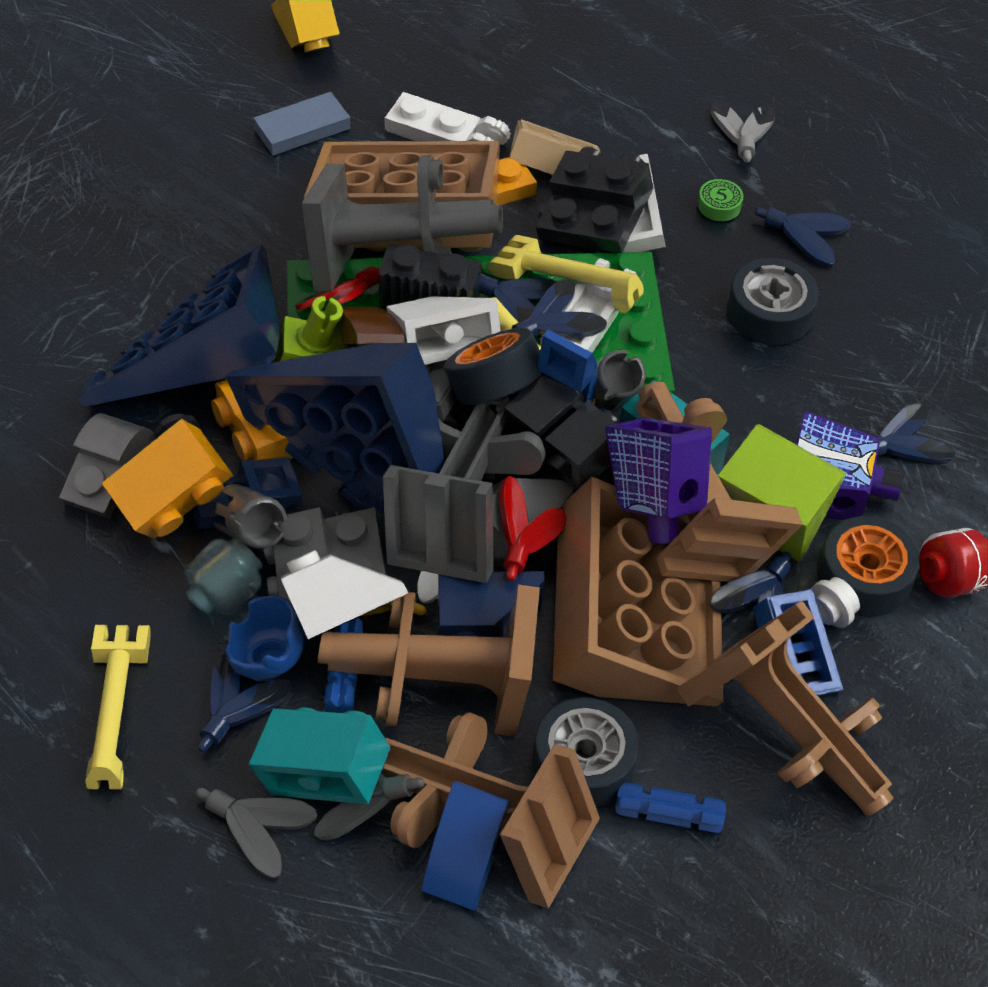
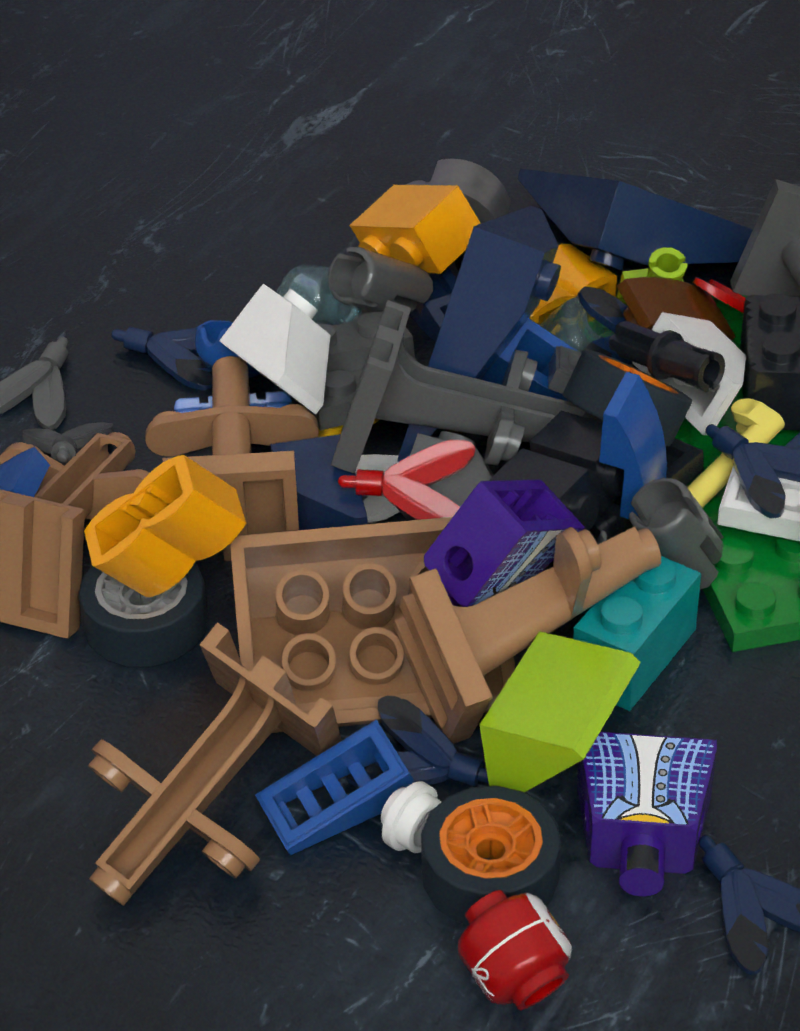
camera: 85 degrees right, 10 degrees down
(117, 655) = (229, 262): light yellow hinge -> none
(320, 755) = (94, 390): teal brick -> none
(457, 328) = (668, 355): none -> black axle
(588, 703) = (164, 526): none -> light orange brick
(671, 807) = (83, 693): blue axle -> none

